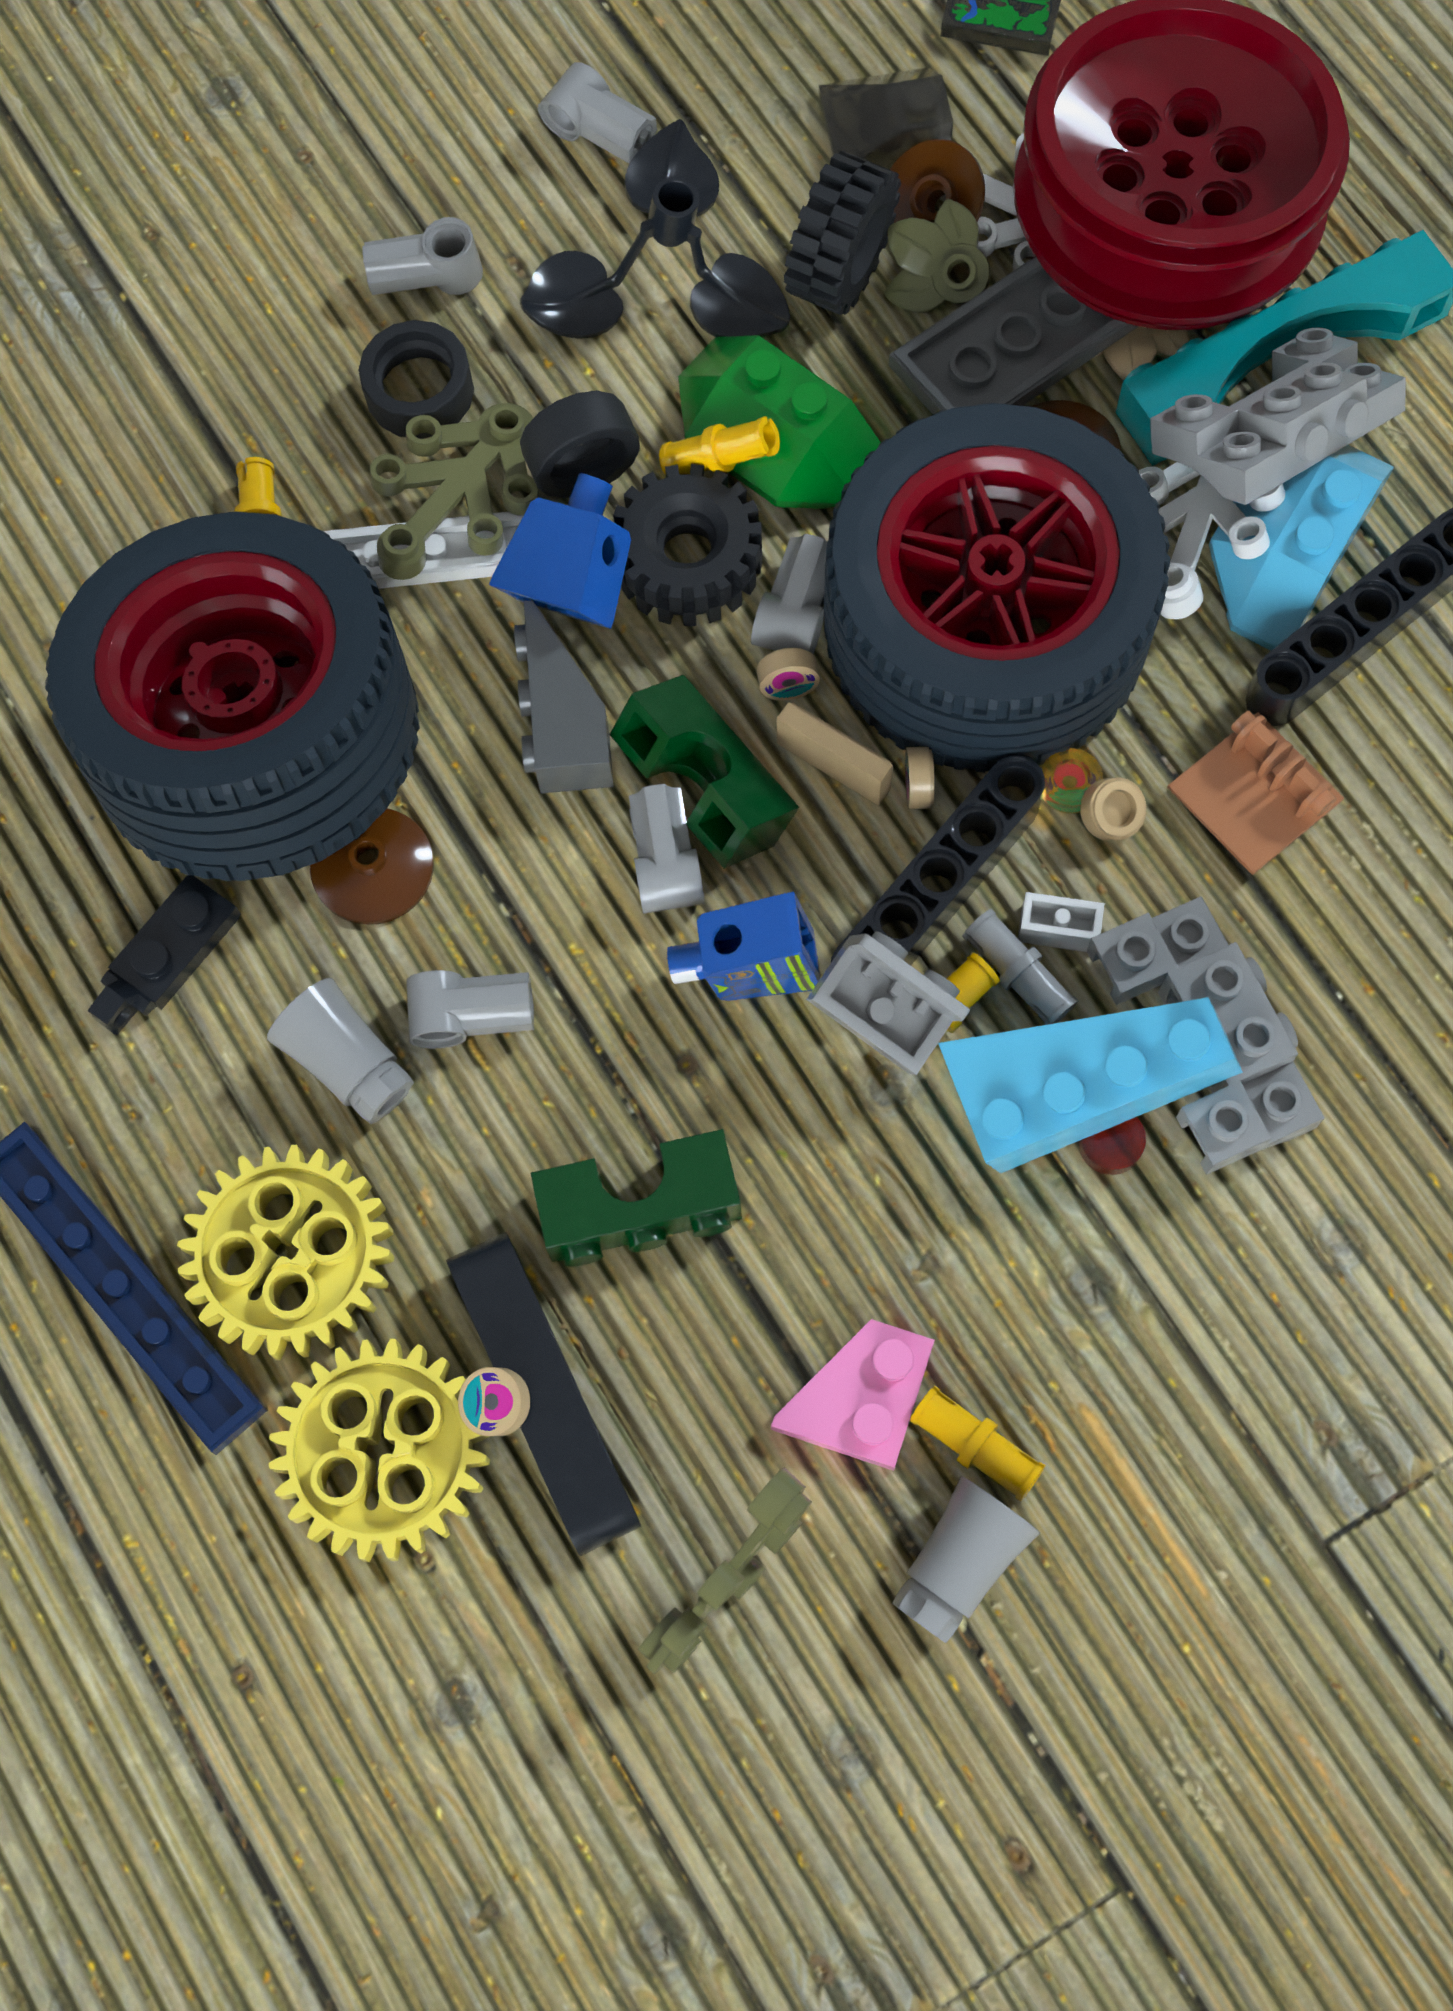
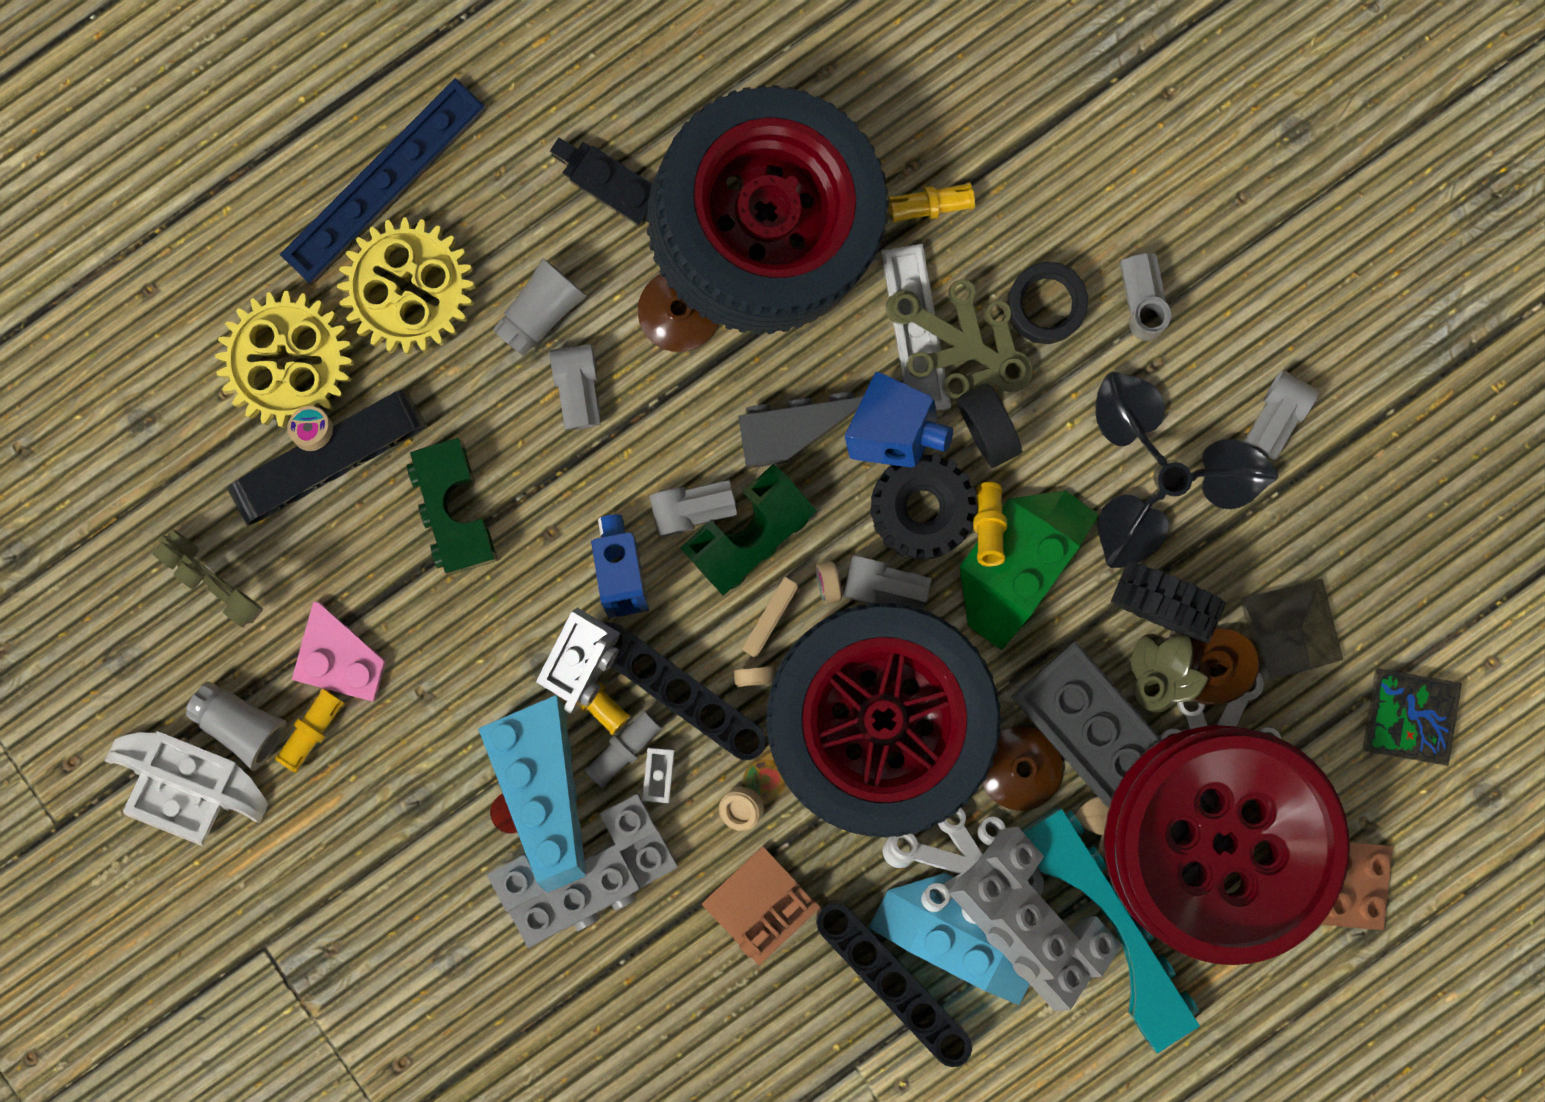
camera: 80 degrees right, 15 degrees up
(1059, 1659) = (183, 785): none -> white plate

